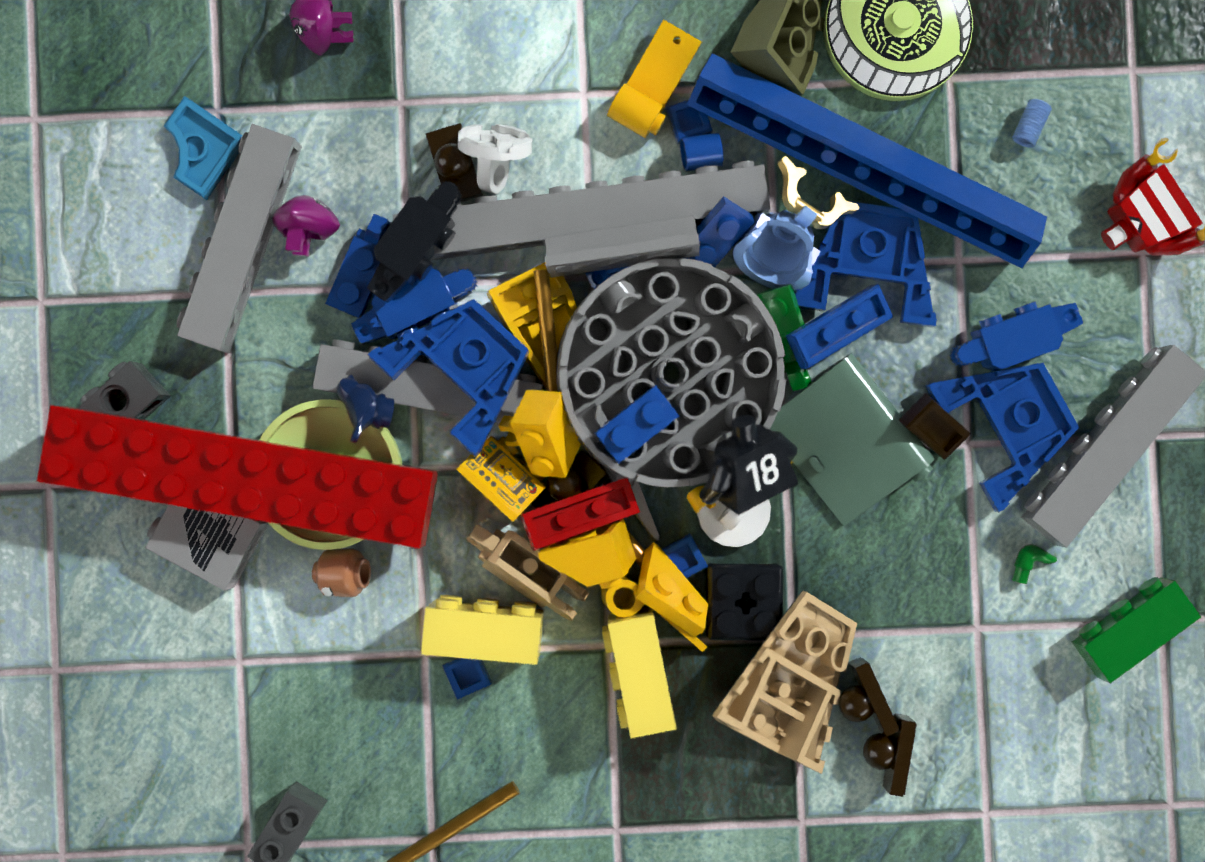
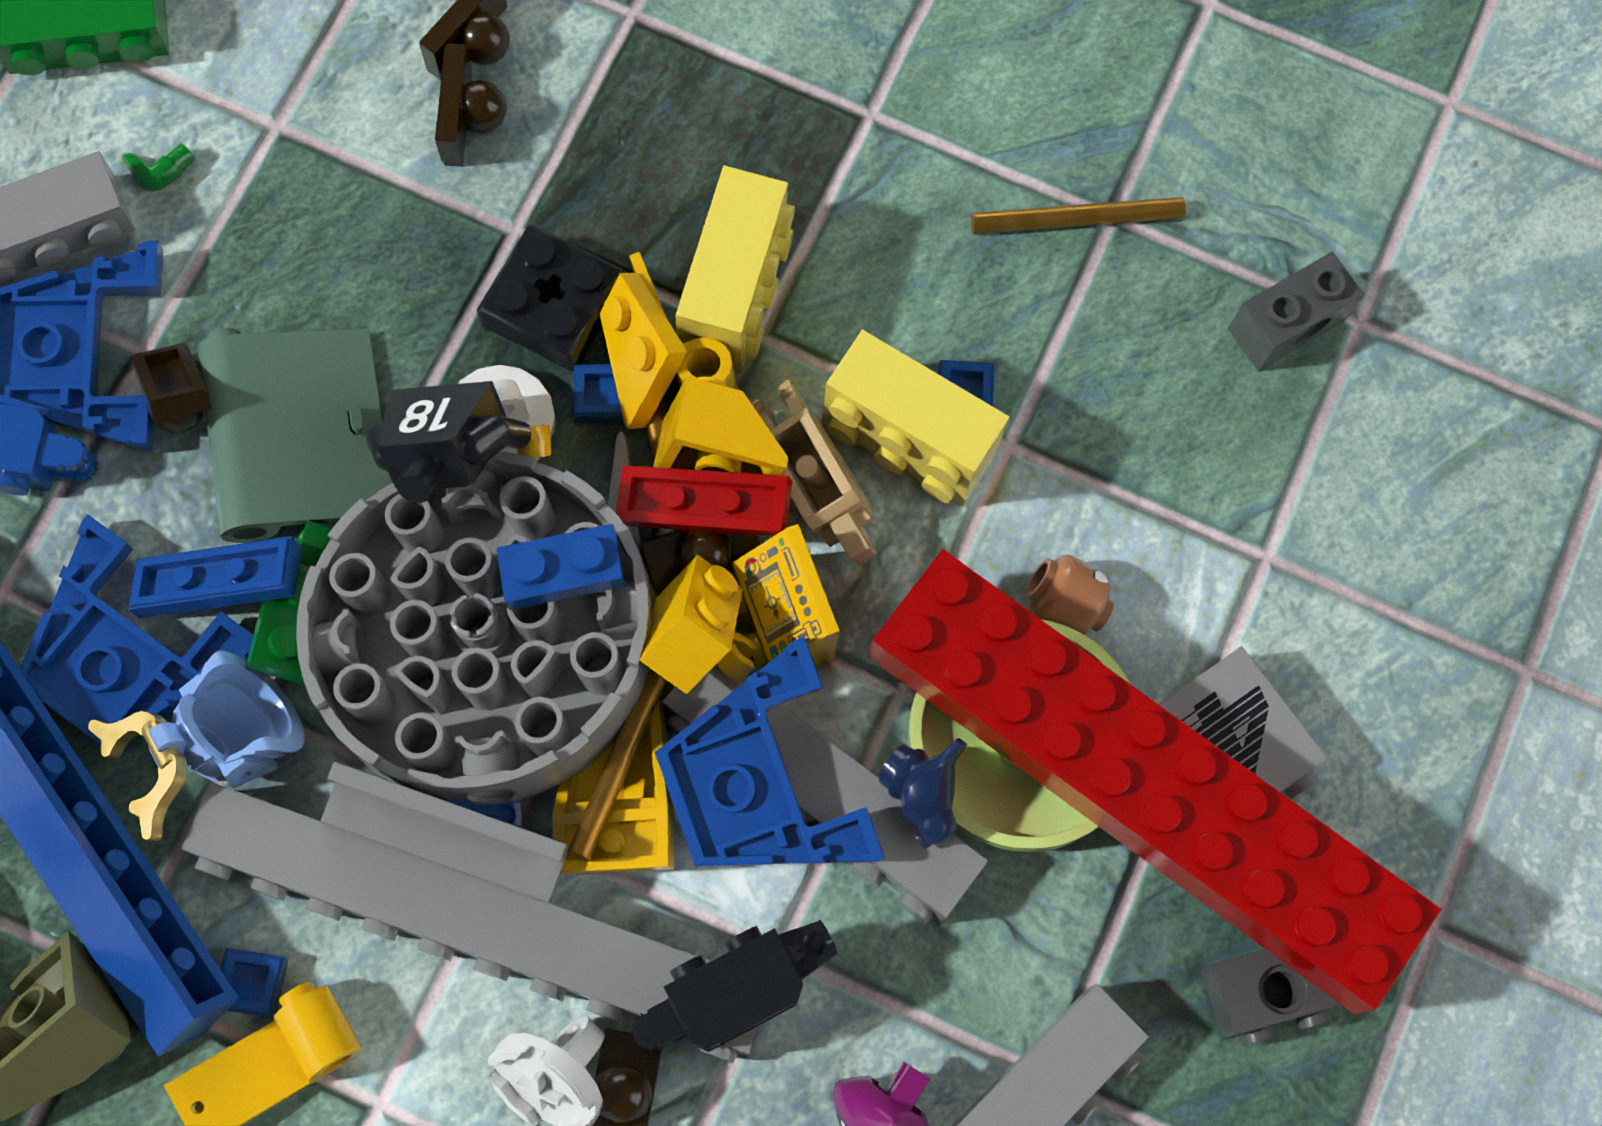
camera: 155 degrees left, 15 degrees down
(358, 267) = (837, 1008): blue hinge -> none
(414, 305) = (786, 904): blue hinge -> none
(701, 151) = (259, 922): blue beam -> none
(721, 231) = (294, 786): blue plate -> none
(793, 683) = (546, 165): tan wedge -> none

